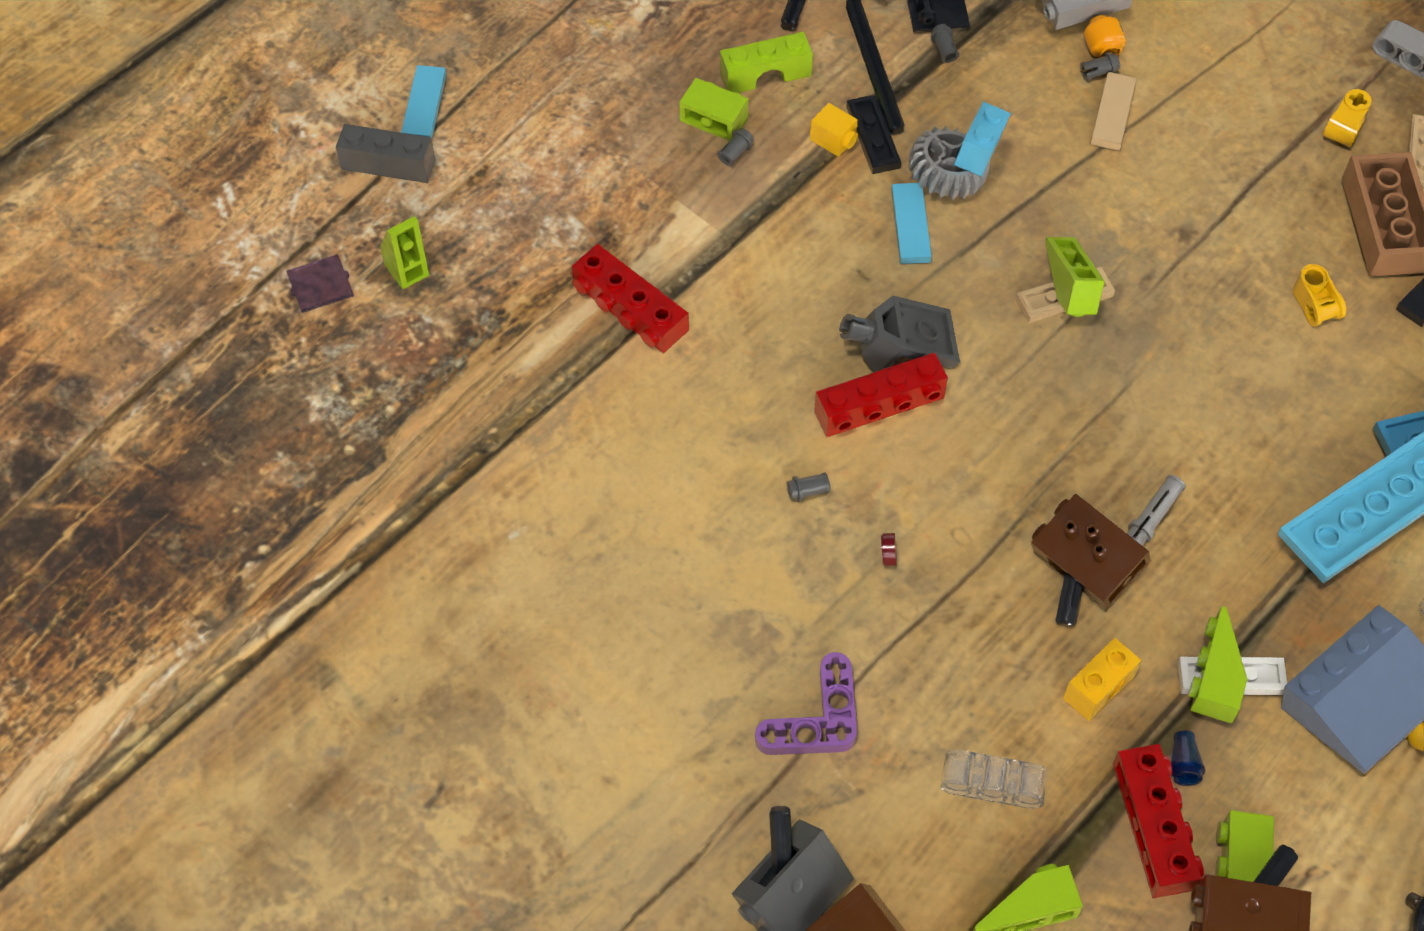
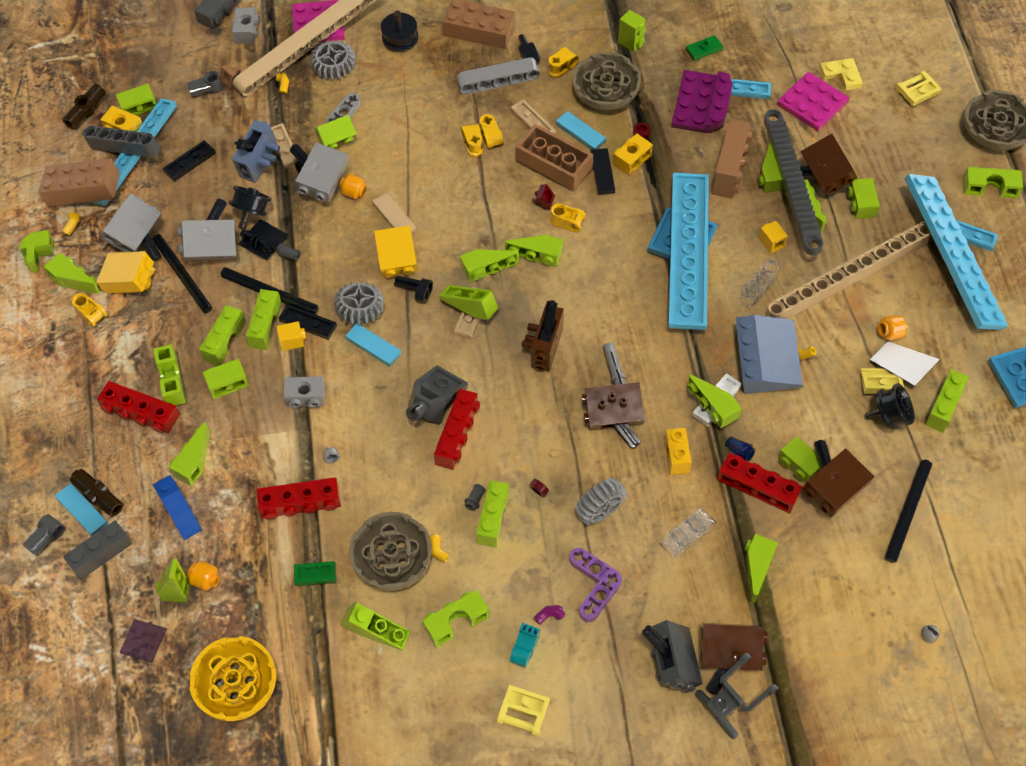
camera: 50 degrees left, 0 degrees up
(337, 374) = (216, 664): none -> yellow brick
(370, 91) = (47, 530): none -> dark grey piece
(444, 276) = (203, 575): none -> light orange head
(455, 99) = (96, 492): none -> dark brown piece
(507, 186) = (177, 507): none -> blue slope
(535, 505) = (374, 626): none -> lime slope
(549, 389) = (314, 573): none -> green plate
(579, 752) = (524, 703): none -> light yellow plate
(581, 155) = (191, 460): none -> lime slope
(596, 56) = (138, 407): none -> red brick
(599, 572) = (470, 607): none -> lime arch
(643, 424) = (389, 529): none -> dark tan brick
(649, 67) = (170, 375): none -> lime arch
(655, 692) = (525, 645): none -> teal leg
(703, 485) = (436, 551): none -> yellow arm
(718, 290) = (334, 455): none -> light grey hinge
(729, 688) = (547, 611): none -> magenta arm
(740, 142) = (256, 385): dark grey pin -> none
(774, 199) = (297, 385): none -> light grey brick
(781, 528) = (492, 513): none -> lime arch
(807, 91) = (266, 309): none -> lime arch
(932, 632) = (600, 501): none -> light grey gear
(982, 139) = (366, 278): medium azure brick -> none
(1041, 214) = (423, 287): none -> black piece
(1060, 147) = (396, 251): none -> yellow brick
(1100, 66) = (367, 197): dark grey pin -> none
(1110, 397) = (547, 337): none -> reddish brown piece
(1153, 255) = (486, 262): none -> lime slope
(1238, 300) = (541, 248): none -> lime slope
(1316, 109) = (473, 139): none -> yellow piece
(1321, 248) = (544, 197): none -> dark red tile

